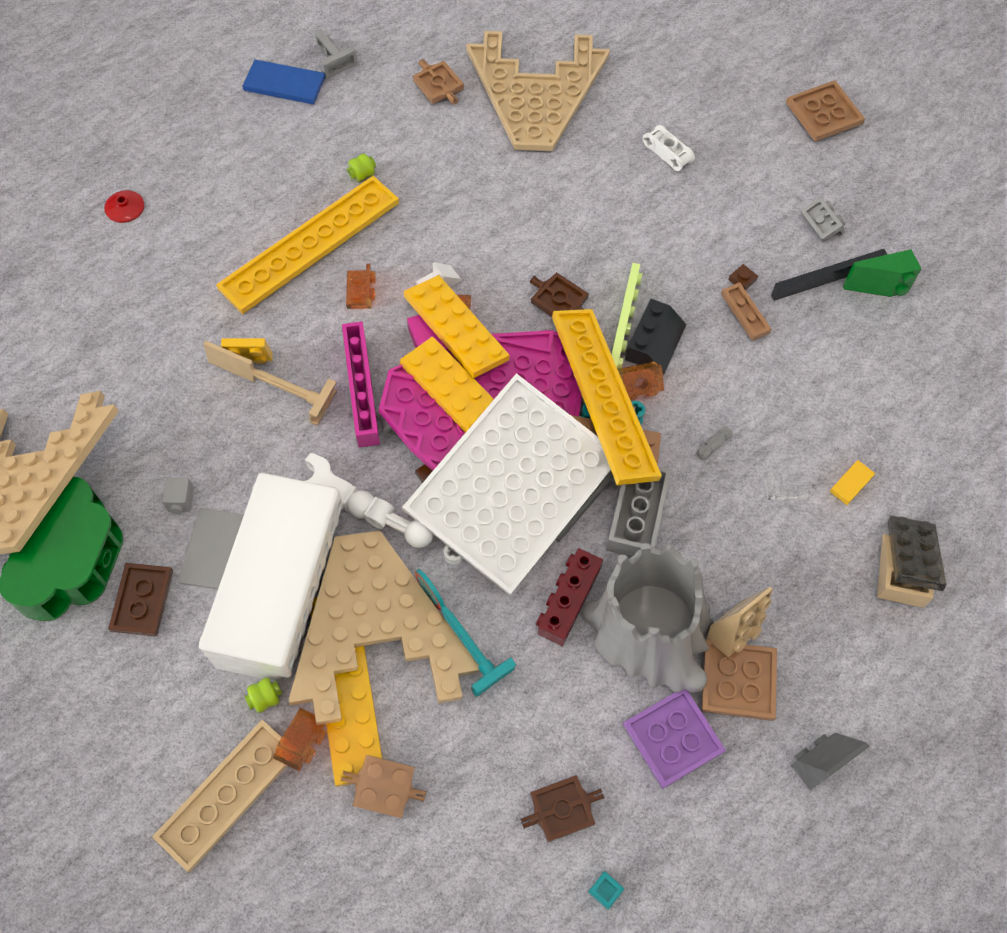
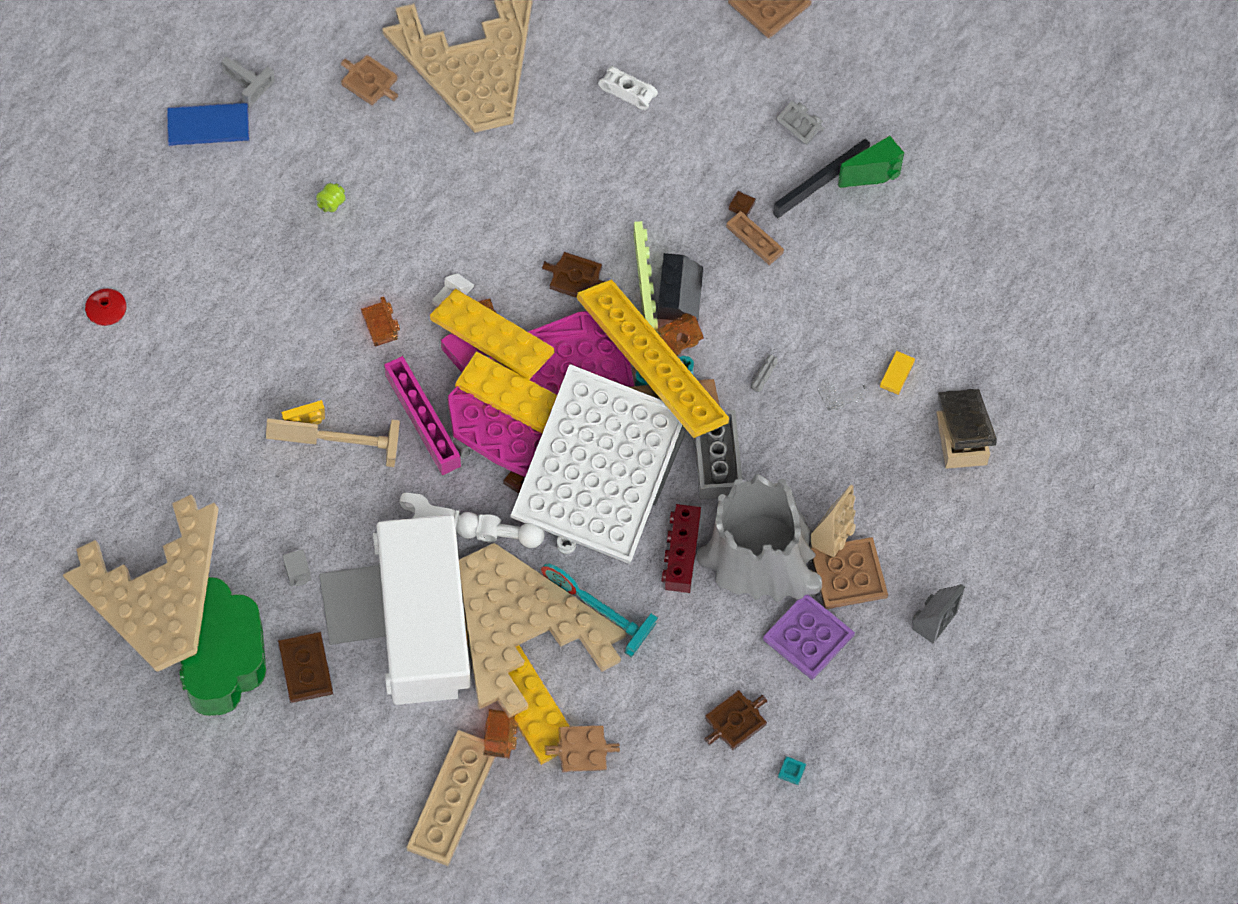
camera: 20 degrees left, 0 degrees up
(263, 695) = (450, 710): lime piece -> none
(307, 244) = (311, 292): yellow plate -> none

